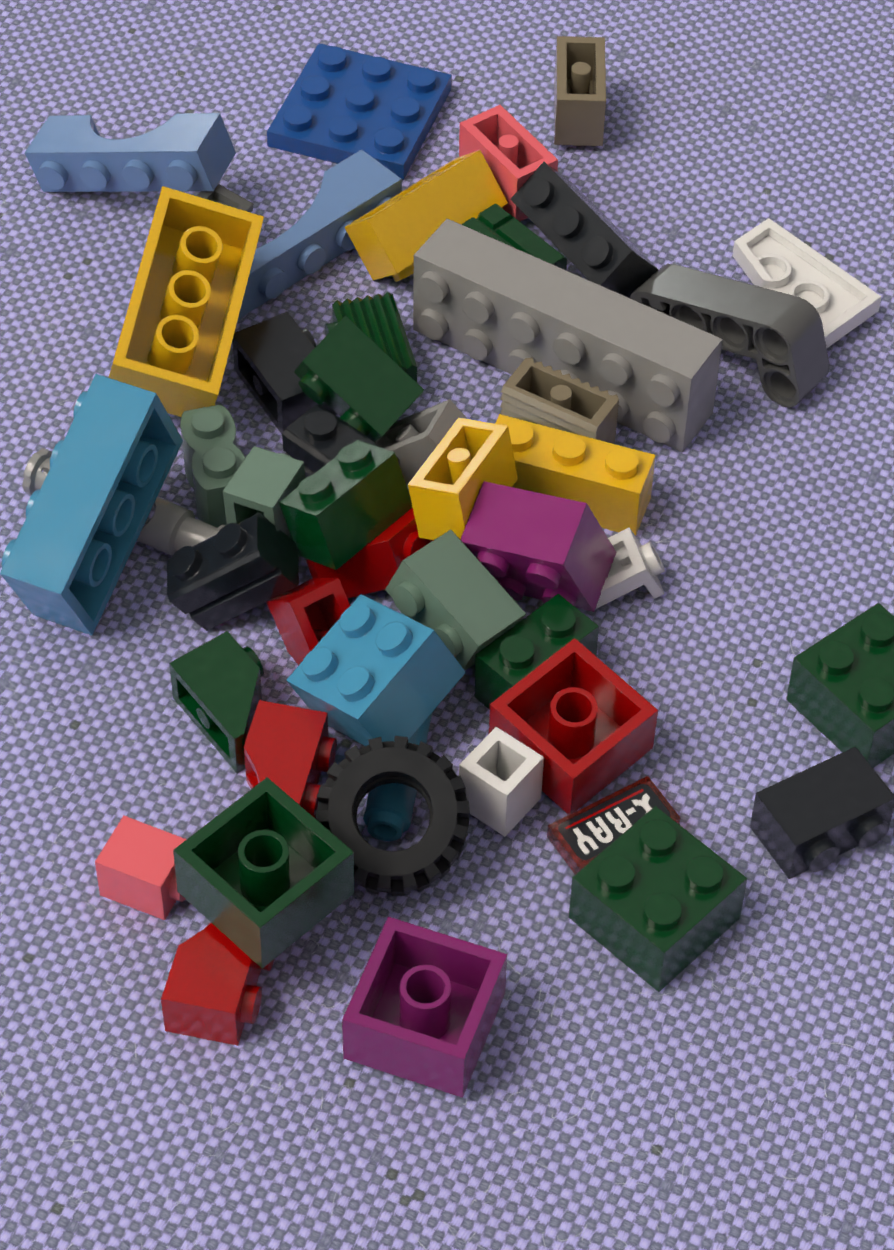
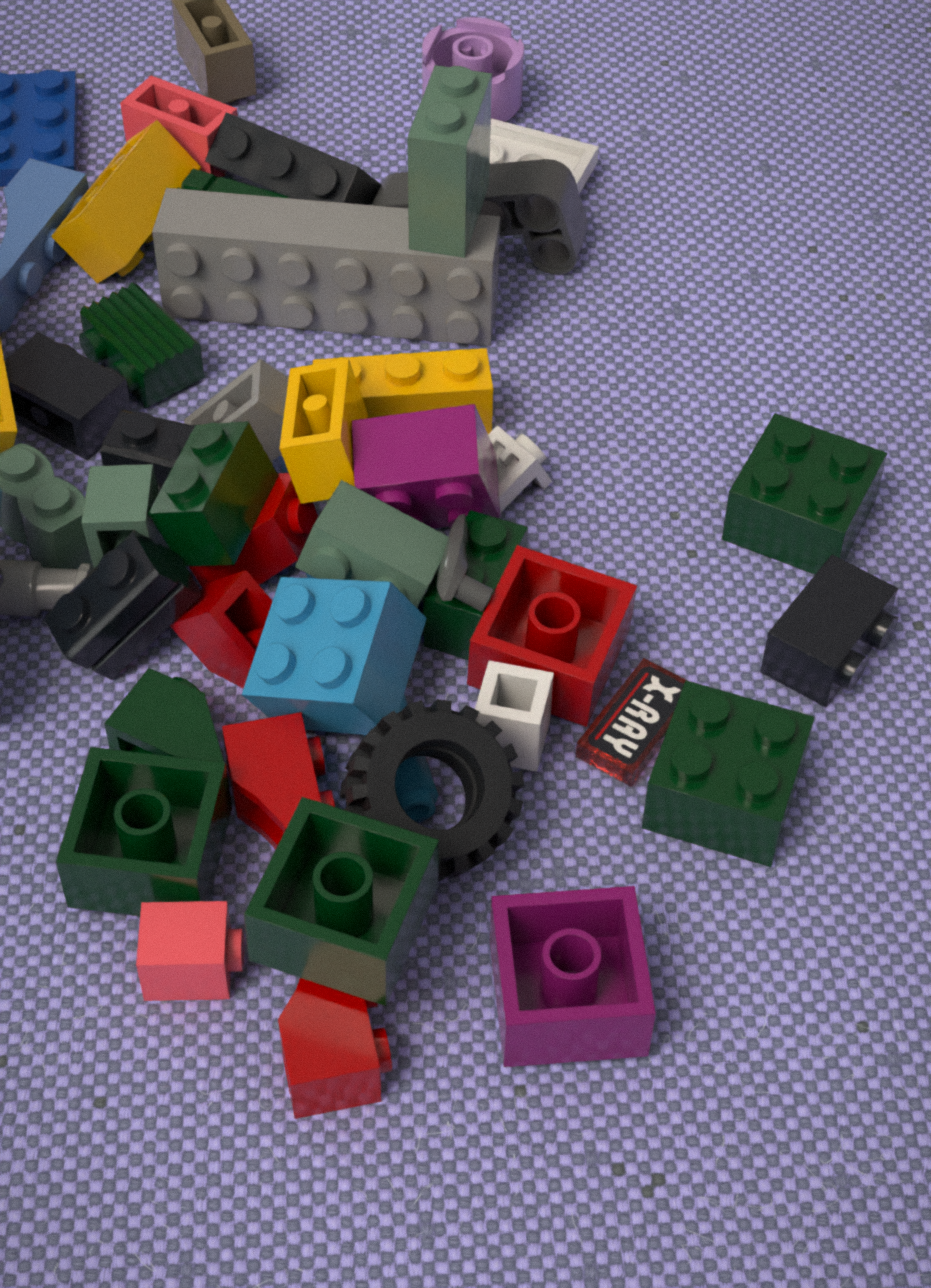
camera: 25 degrees left, 0 degrees up
(158, 761) = (143, 831): none -> dark green brick
(357, 380) = (152, 370): dark green brick -> none
(502, 646) = (454, 564): none -> dark grey bar
(559, 402) = (362, 328): dark tan brick -> none
(682, 277) = (449, 160): none -> sand green brick
(802, 186) = (481, 47): none -> lavender brick

